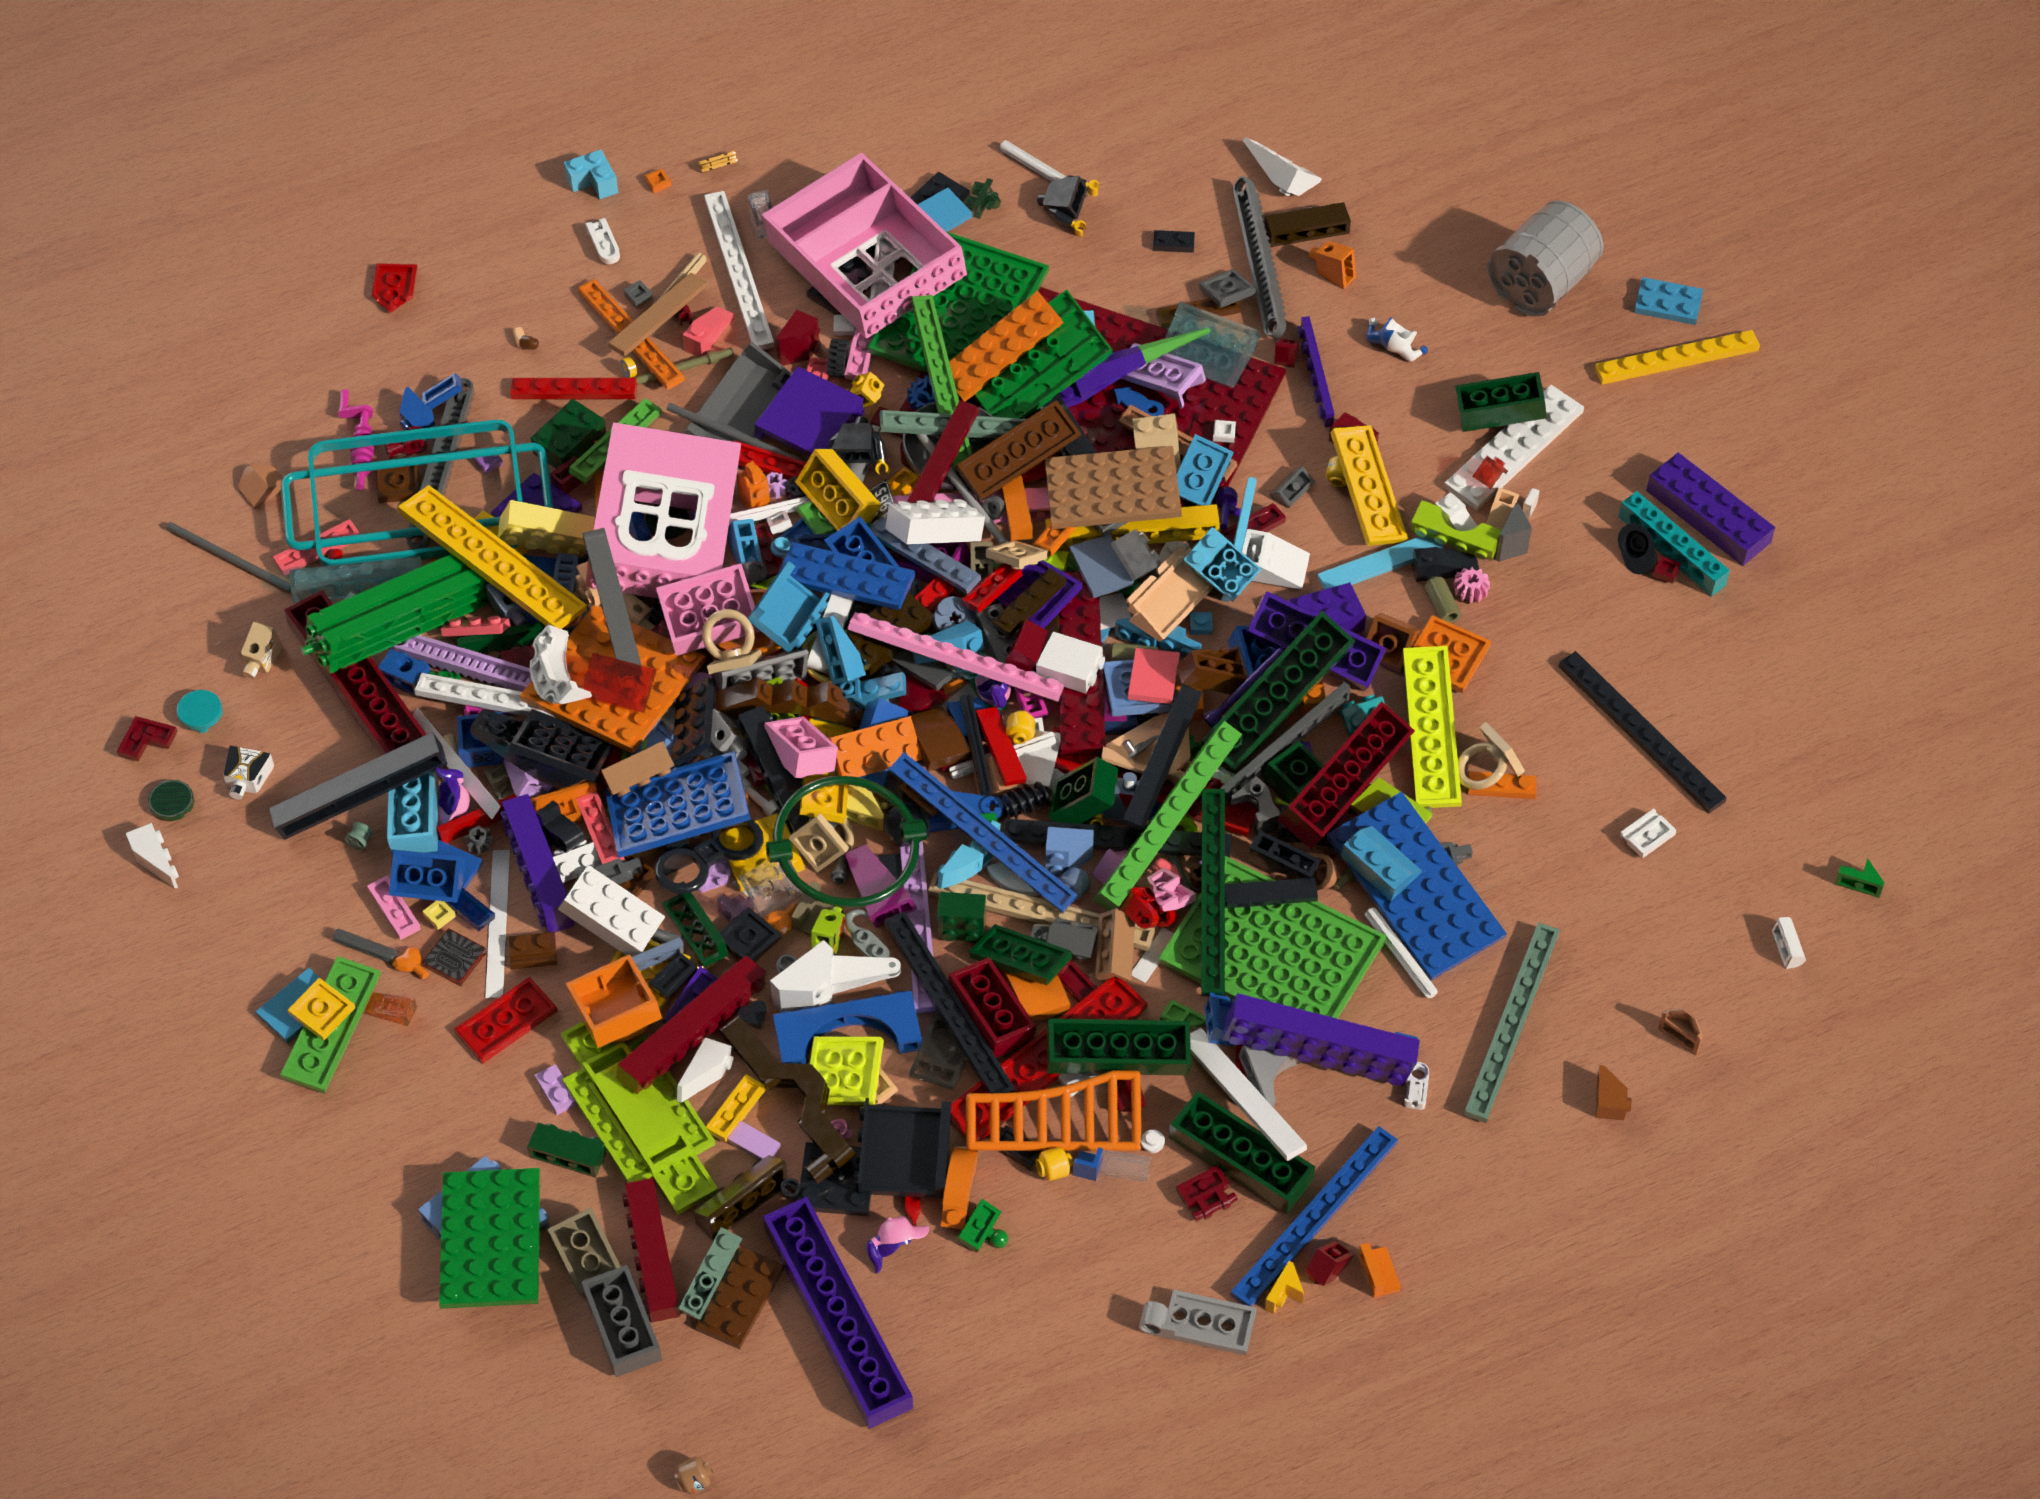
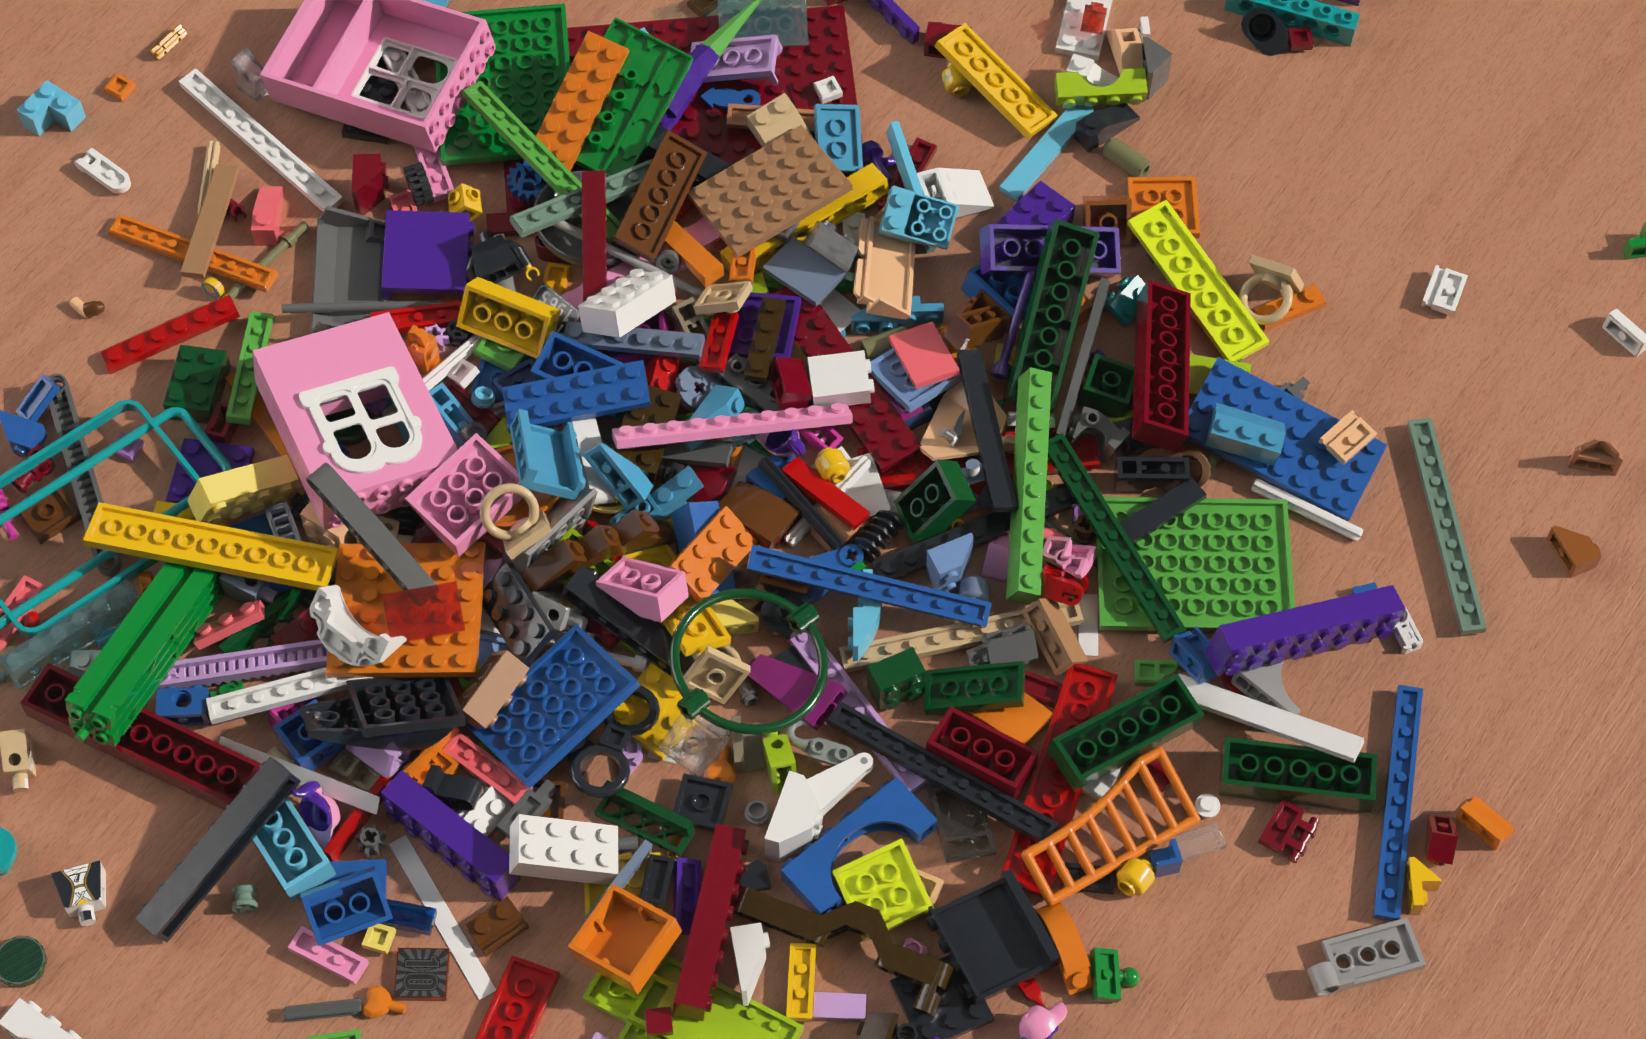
camera: 30 degrees left, 5 degrees up
(601, 1077) = (658, 1021): none -> dark red tile
(637, 293) = (173, 209): dark grey plate -> none
(733, 908) = (668, 780): clear purple panel -> none
(842, 326) = (398, 150): white tile -> none
(1006, 879) = (910, 620): white tile -> none
(1201, 623) = (925, 283): dark azure plate -> none
(1293, 487) = (921, 114): dark grey slope -> none
(1470, 908) = (1347, 437): none -> light nougat plate
(1471, 585) = (1142, 132): bright pink gear -> none
(1642, 732) = (1375, 198): black plate -> none

